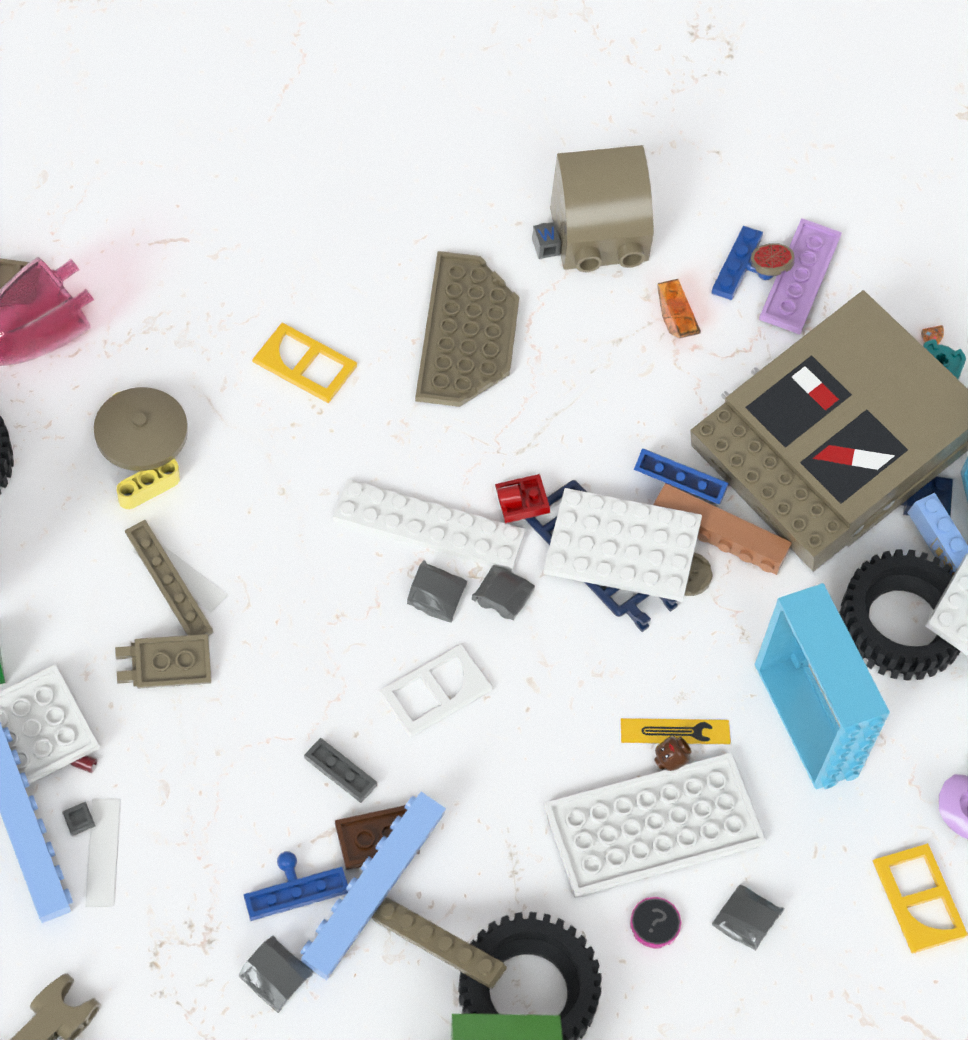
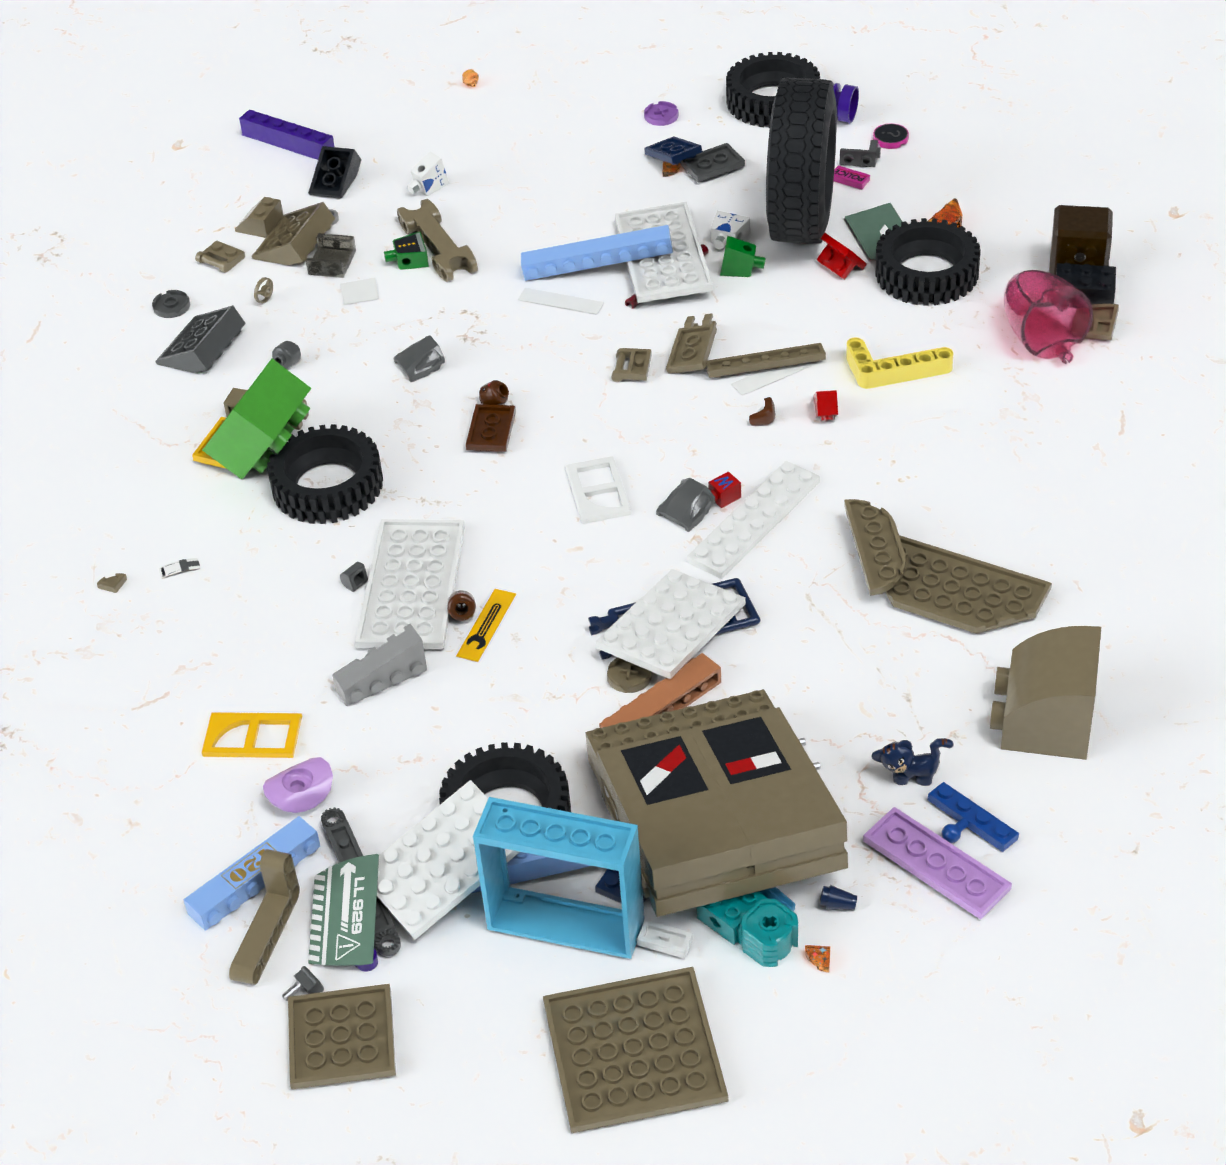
camera: 120 degrees right, 15 degrees down
(78, 818) = (591, 290): dark grey tile -> none
(140, 429) = (908, 356): dark tan dish -> none
(214, 713) = (638, 364): none -> dark tan plate
(229, 500) = (826, 404): none -> red slope
(259, 552) = (765, 416): none -> reddish brown hair
(270, 359) = (966, 458): yellow window -> none
(296, 891) = (473, 378): blue plate -> none
(323, 851) = (494, 393): none -> reddish brown head
(340, 770) = (555, 420): dark grey plate -> none
(372, 886) = (451, 410): light blue brick -> none
(402, 559) = (725, 489): none -> red brick
(439, 943) = (382, 425): dark tan plate -> none
(447, 394) = (876, 544): none -> dark tan plate
(503, 592) = (663, 543): dark grey slope -> none
(522, 498) = (751, 572): red plate -> none
(655, 922) = (331, 563): black tile -> none
(669, 887) = (354, 576): none -> dark grey brick
(676, 310) = (918, 733): clear orange slope -> none
(681, 476) = (729, 679): blue brick -> none
(710, 306) = (900, 760): none -> dark blue animal
(747, 917) = (303, 617): dark grey slope -> none
(772, 259) = (958, 832): tile -> none
(792, 795) = (382, 667): none -> light grey wedge
(812, 633) = (444, 623): medium azure door -> none

